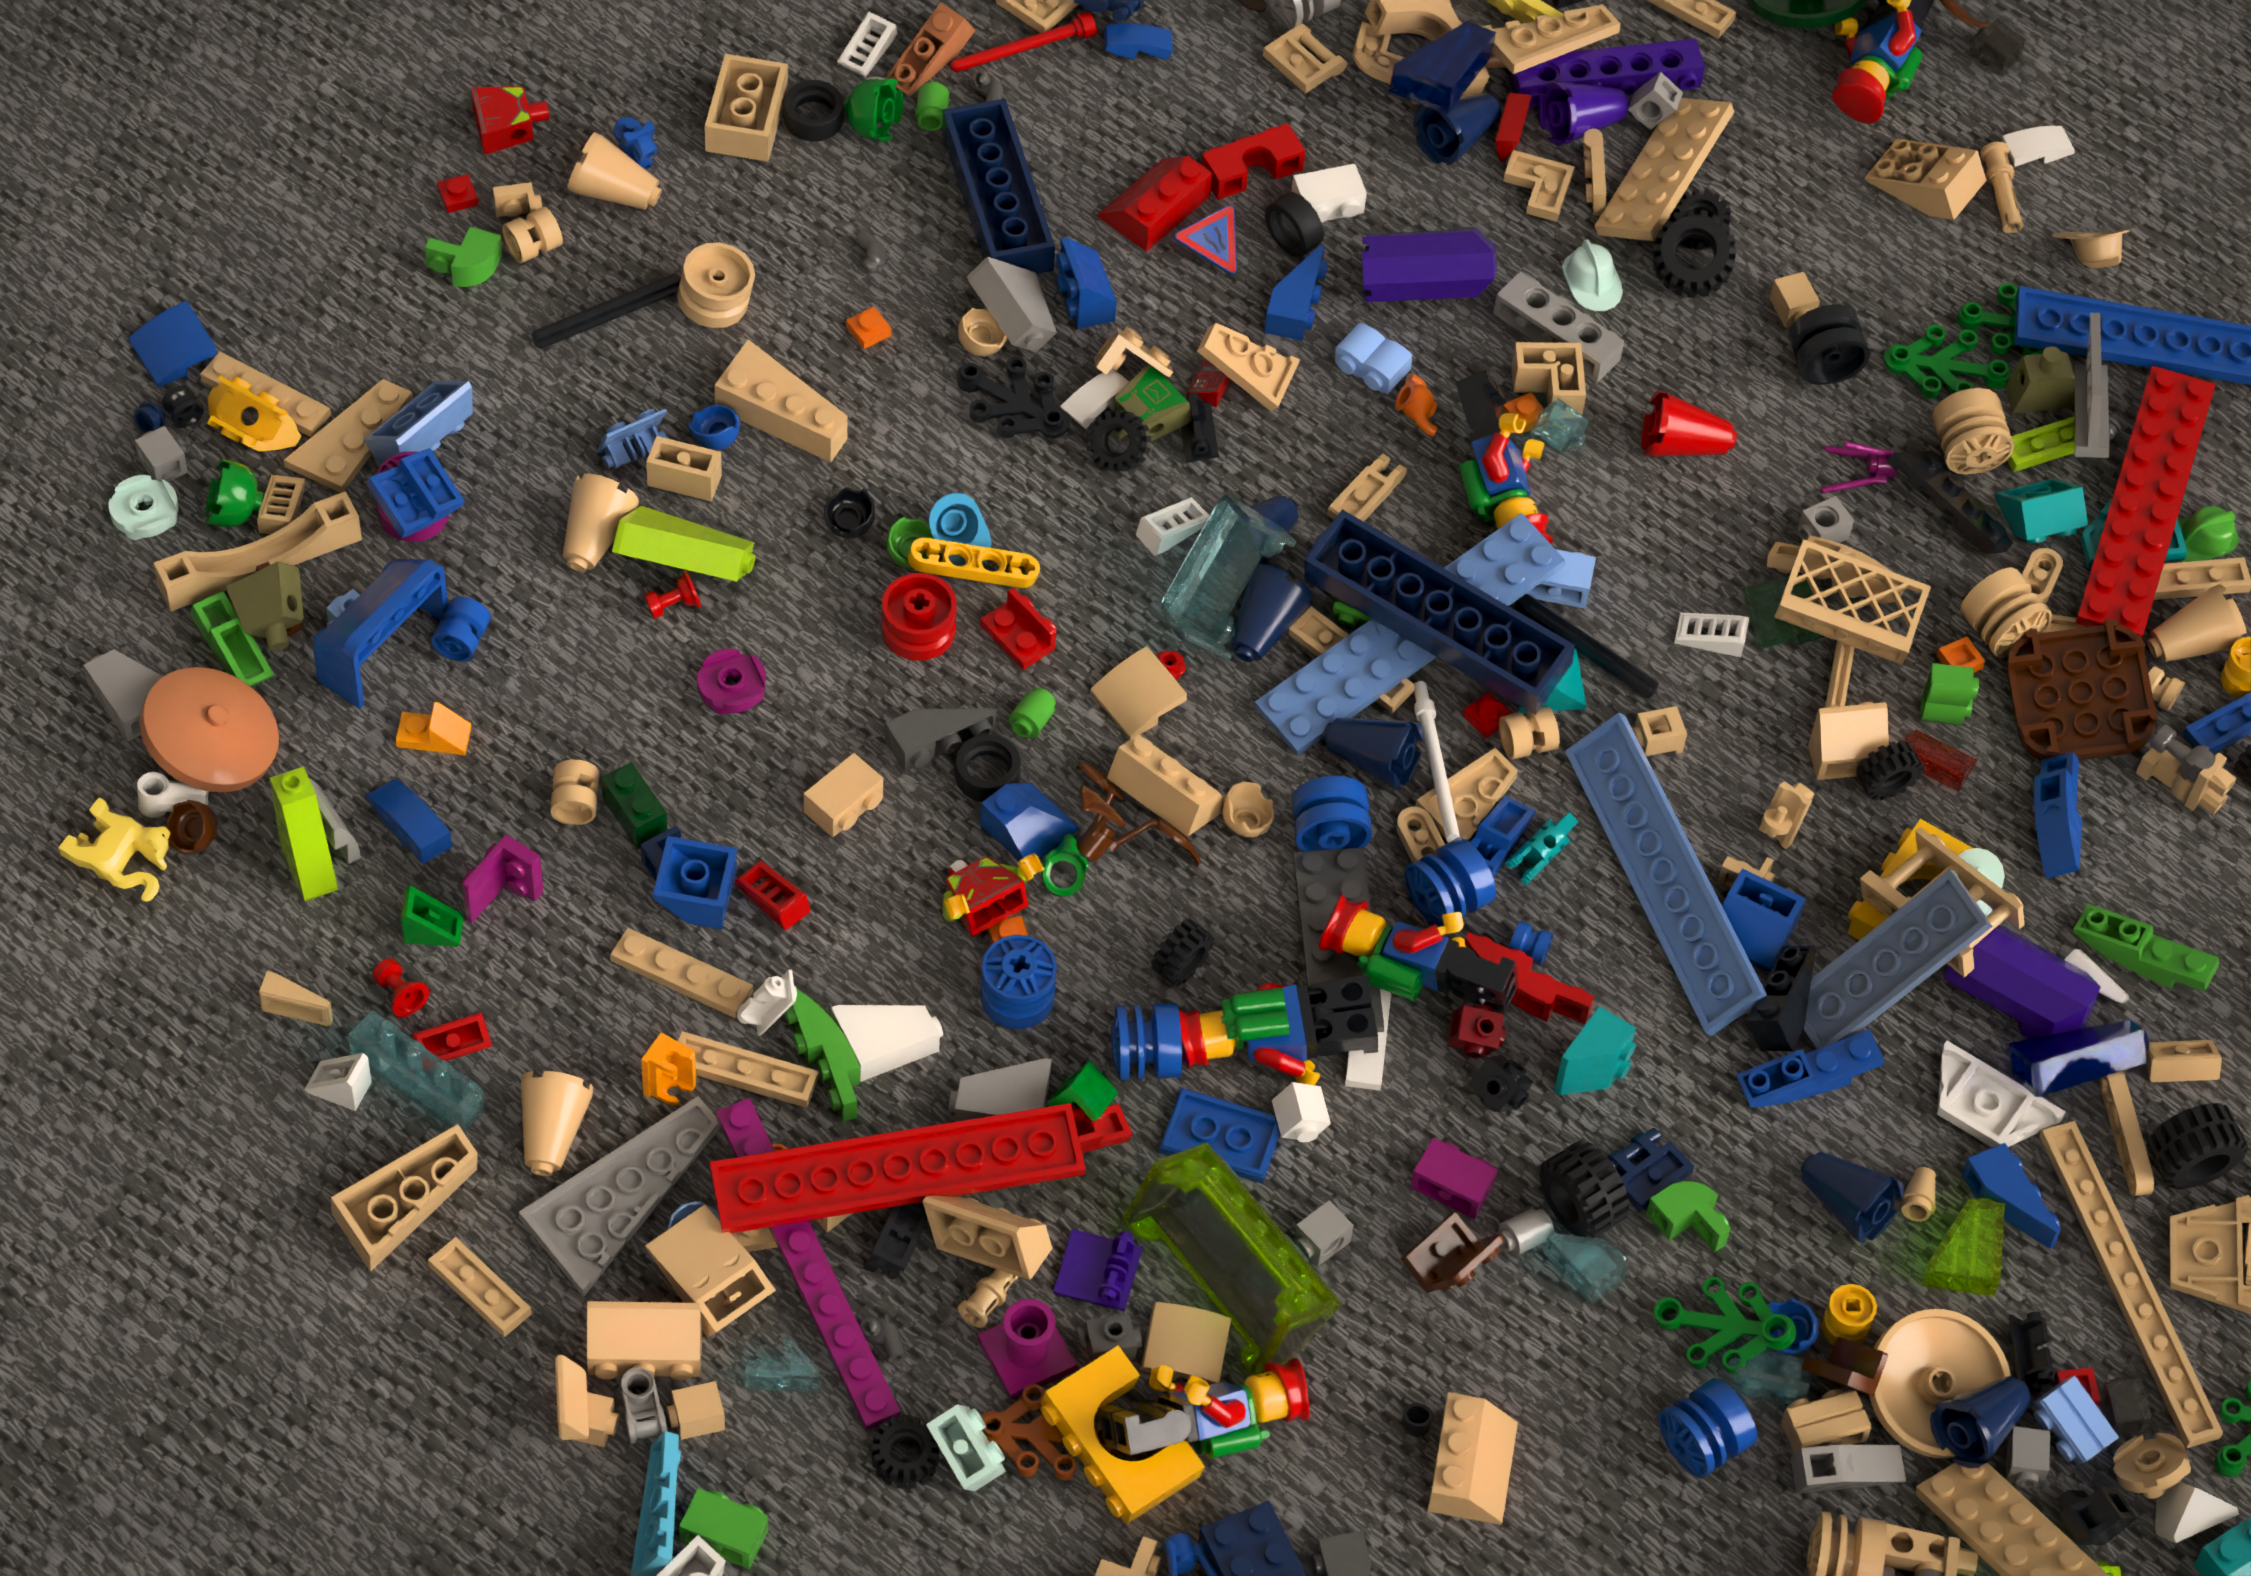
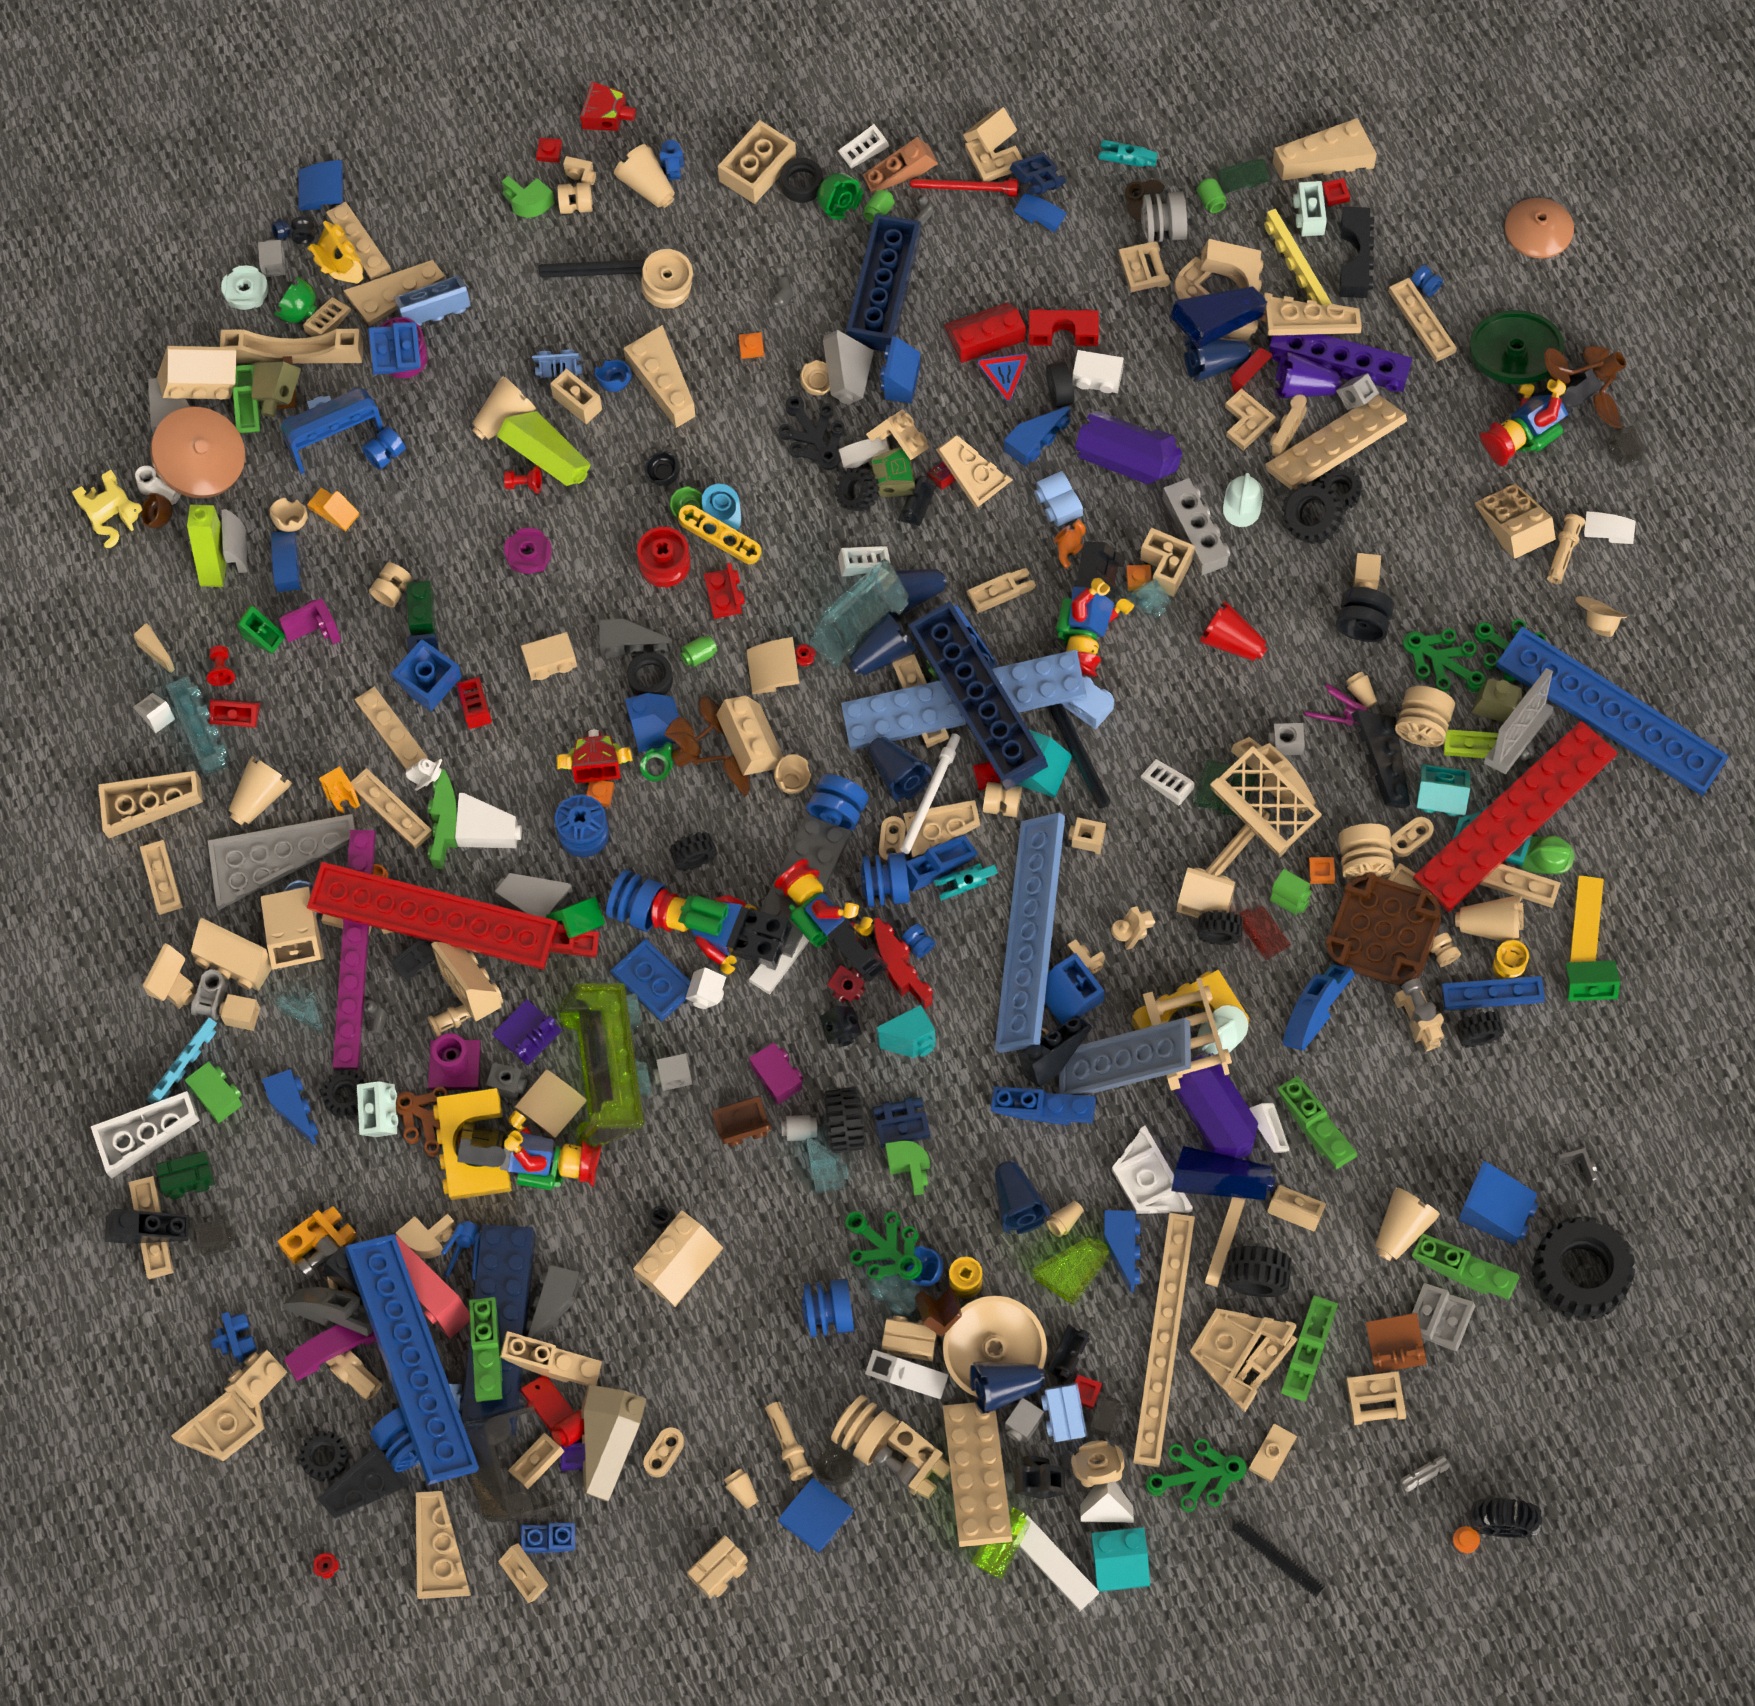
camera: 35 degrees right, 10 degrees up
(154, 626) = (197, 372): none -> tan slope
(381, 762) = (288, 515): none -> tan hair
(834, 1496) = (287, 1102): none -> blue slope
(1873, 433) = (1361, 688): none -> tan cone

